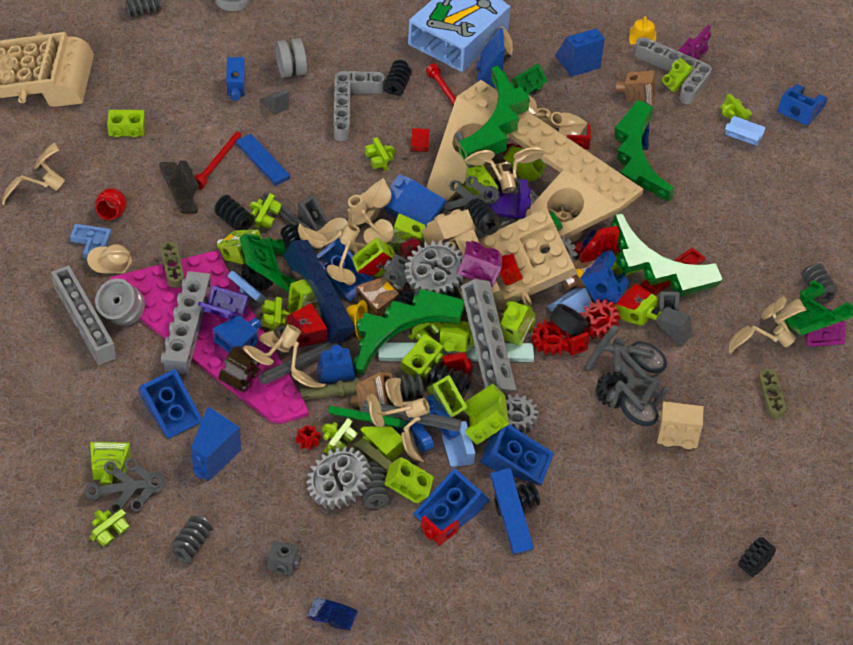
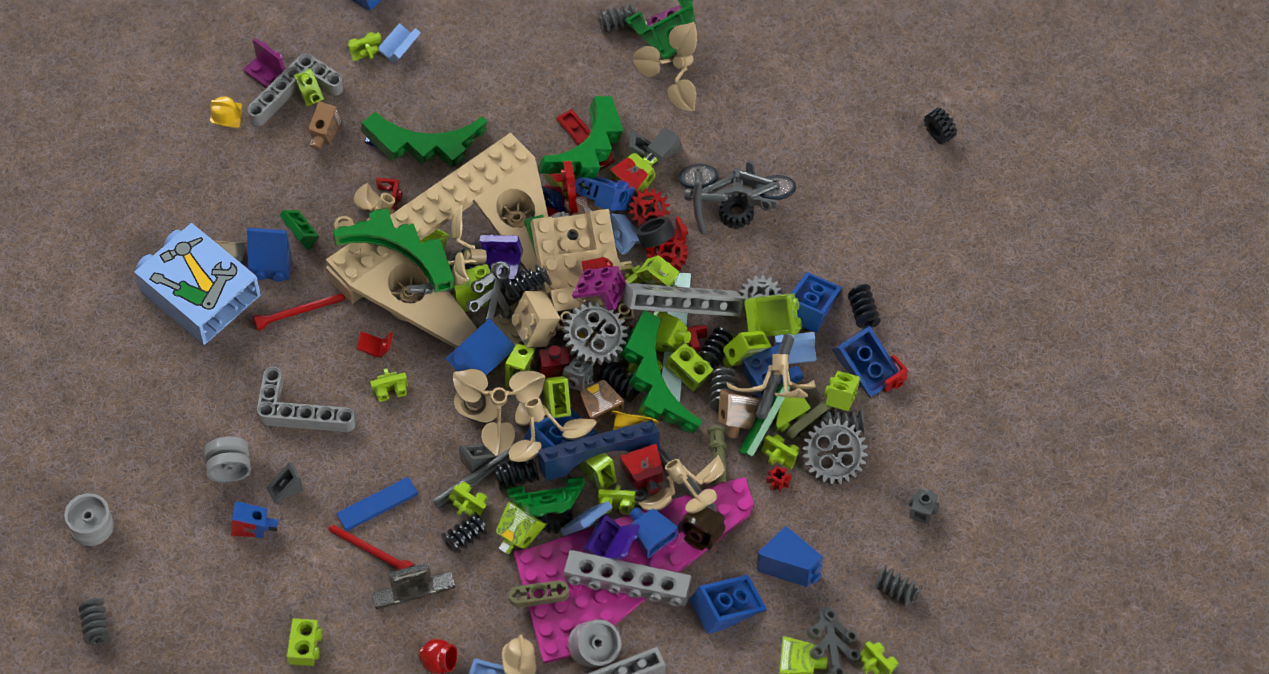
camera: 80 degrees left, 10 degrees up
(333, 613) = (983, 470): clear blue slope -> none
(335, 366) = (694, 443): blue torso -> none
(397, 78) = (270, 357): black piece -> none
(511, 511) = (884, 308): blue tile -> none
(581, 52) = (260, 171): blue slope -> none
(680, 425) = (793, 157): tan brick -> none
(775, 387) = (748, 78): olive beam -> none

